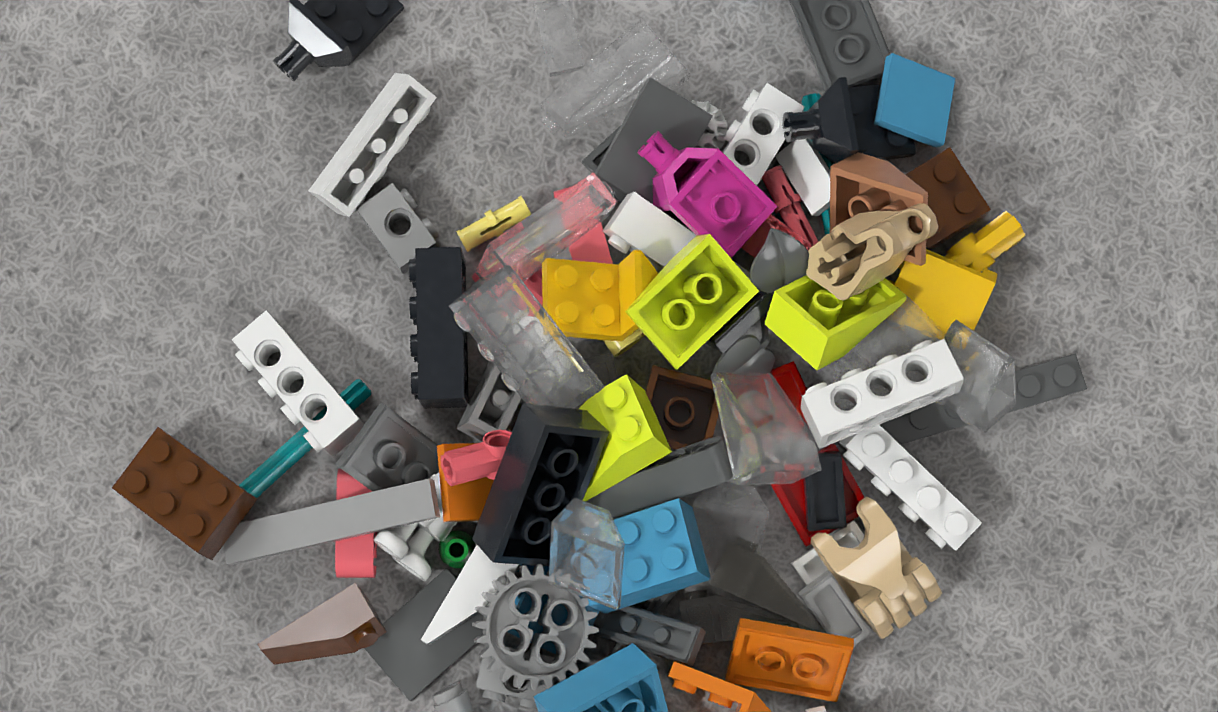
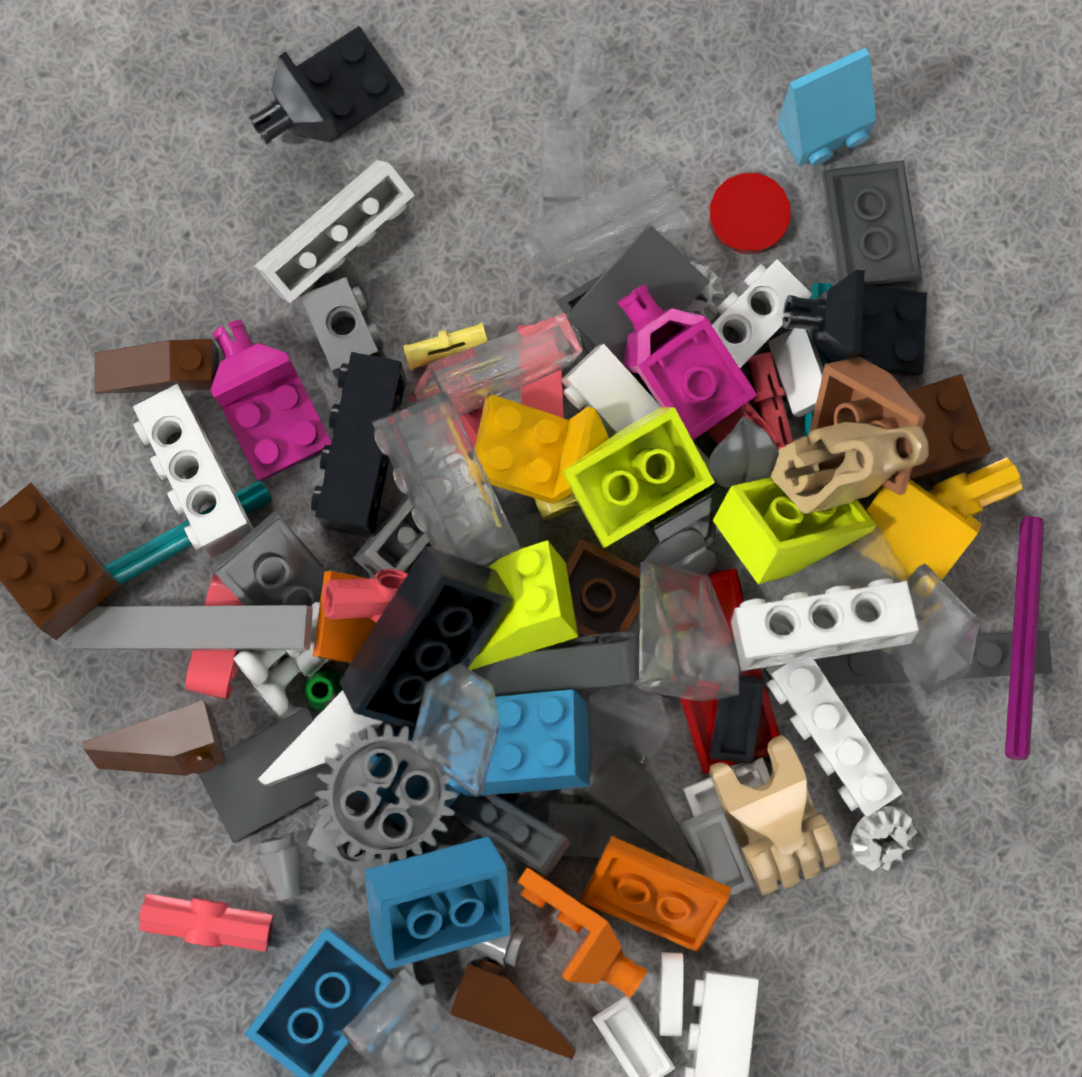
camera: 15 degrees right, 0 degrees up
(243, 299) = (157, 367): none -> reddish brown slope
(348, 311) = (265, 404): none -> dark pink plate
(732, 46) = (749, 213): none -> red tile
(914, 100) = (934, 315): dark azure tile -> none
(968, 555) = (880, 824): none -> white gear
(1056, 364) = (1024, 639): none -> magenta axle

